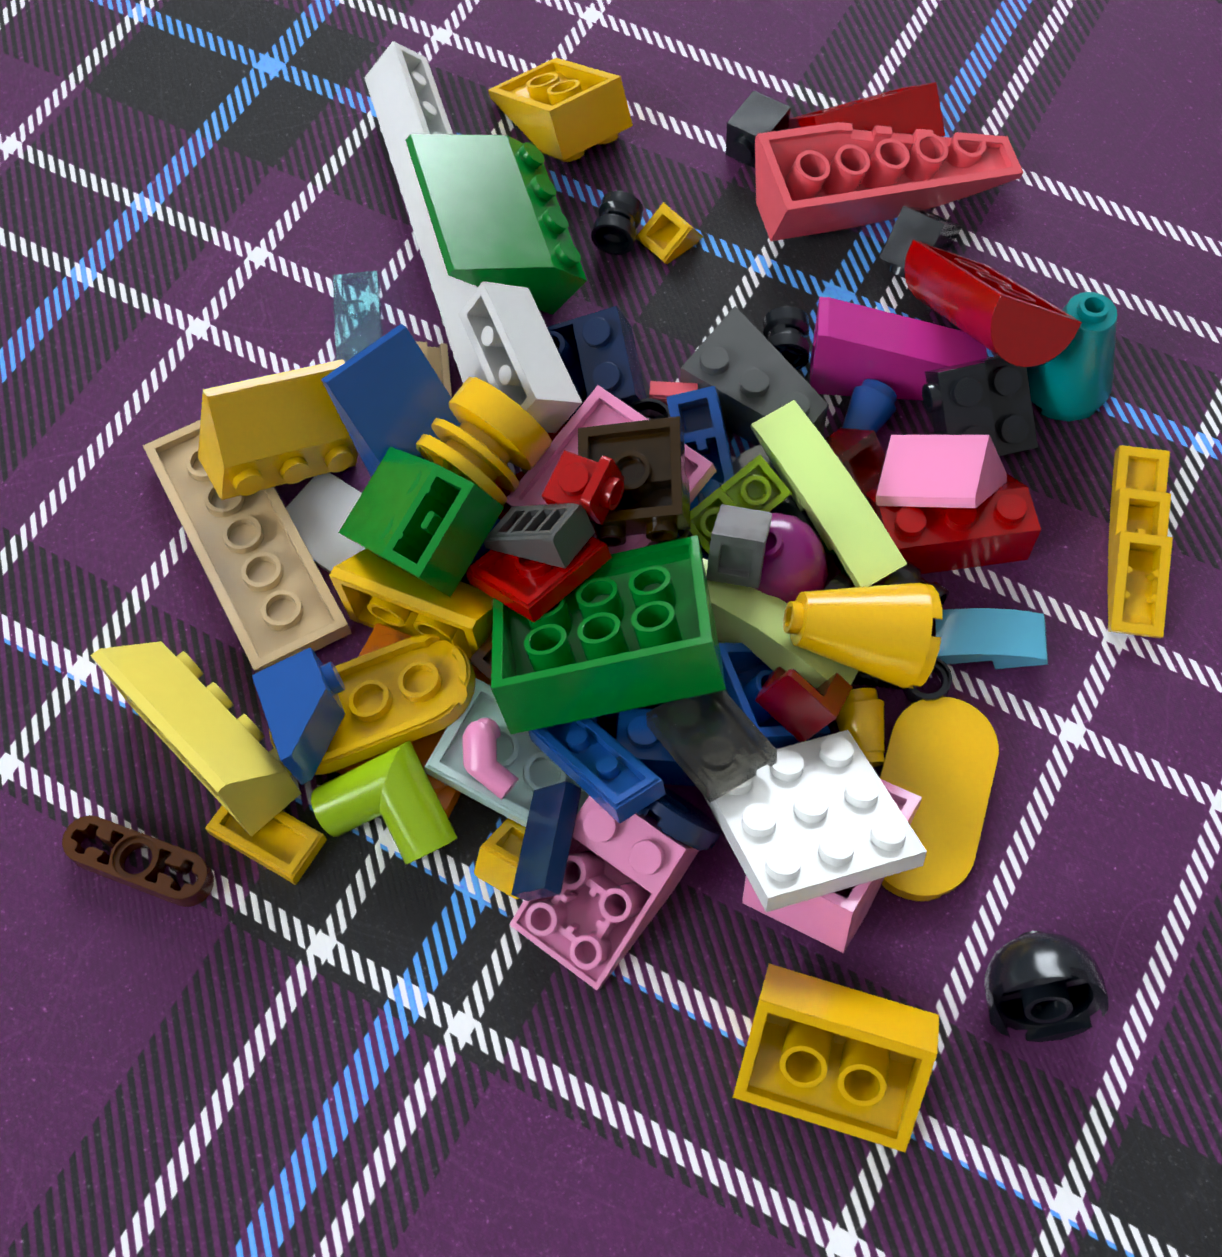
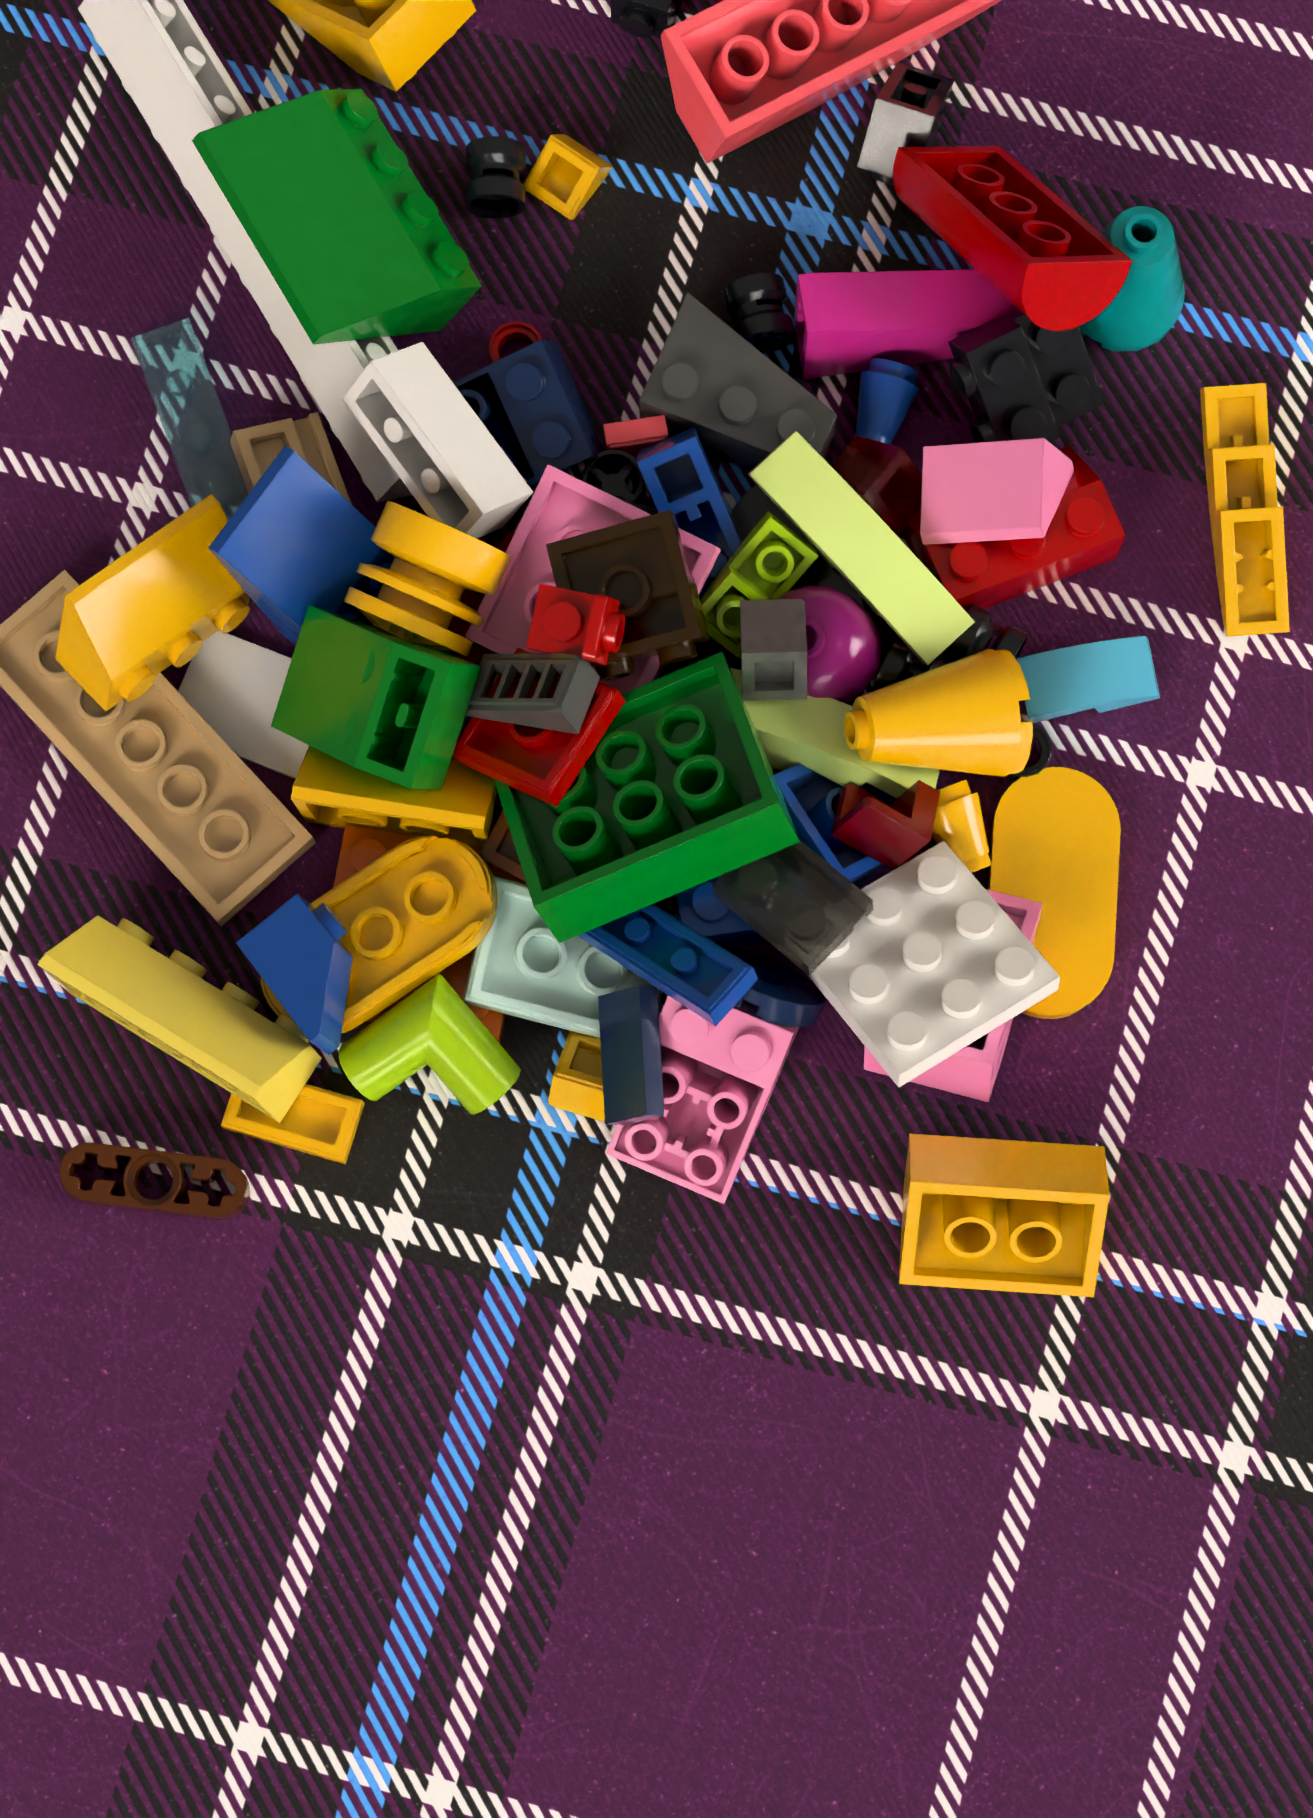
camera: 15 degrees left, 15 degrees up
(481, 757) = (529, 973): bright pink arm -> none
(1044, 987) = (1210, 1088): black cylinder -> none

